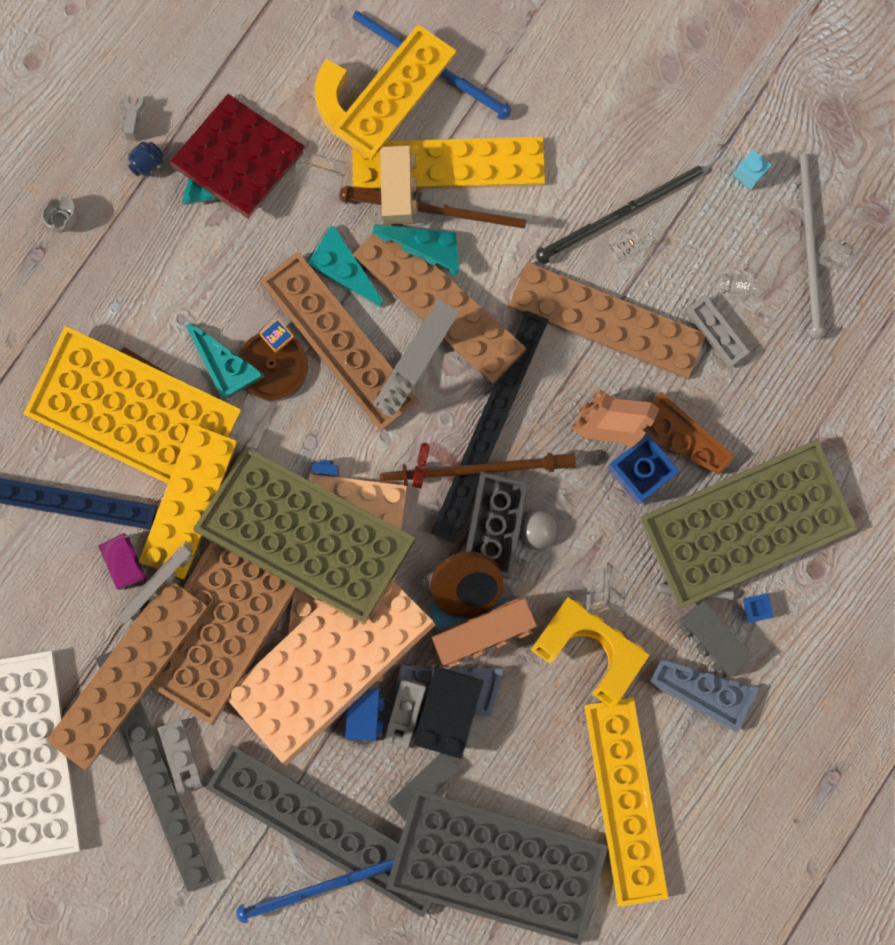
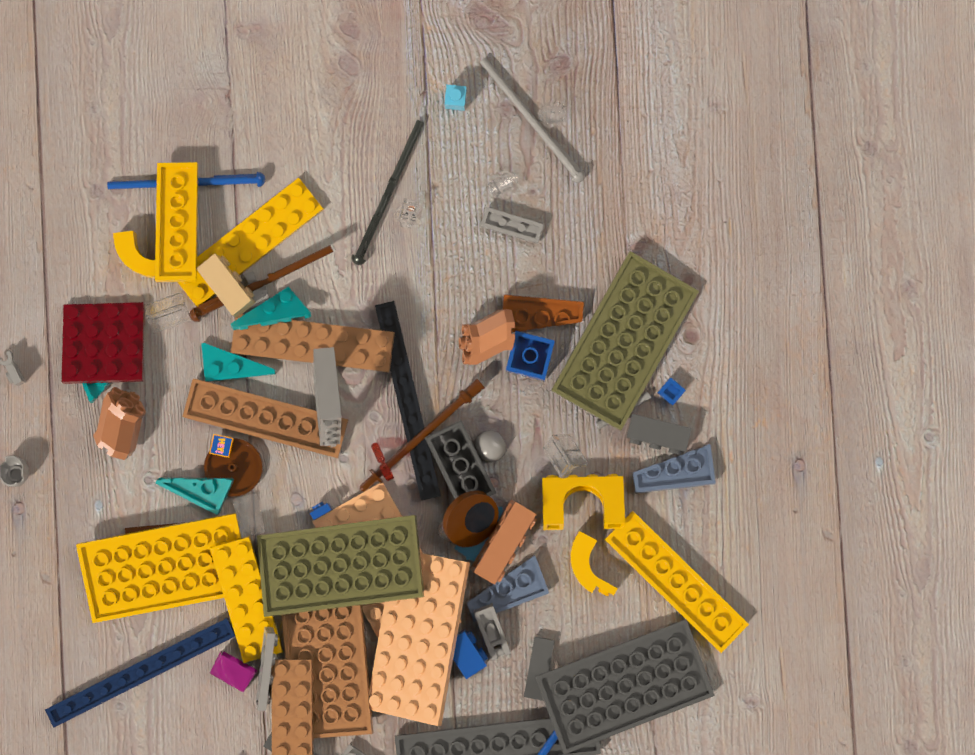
camera: 30 degrees left, 5 degrees up
(145, 159) = (42, 391): dark blue head -> none
(195, 241) = (119, 423): none -> nougat brick
(448, 712) = (520, 611): black slope -> none
(540, 715) = (579, 559): none -> yellow arch
(608, 320) = (433, 271): medium nougat plate -> none

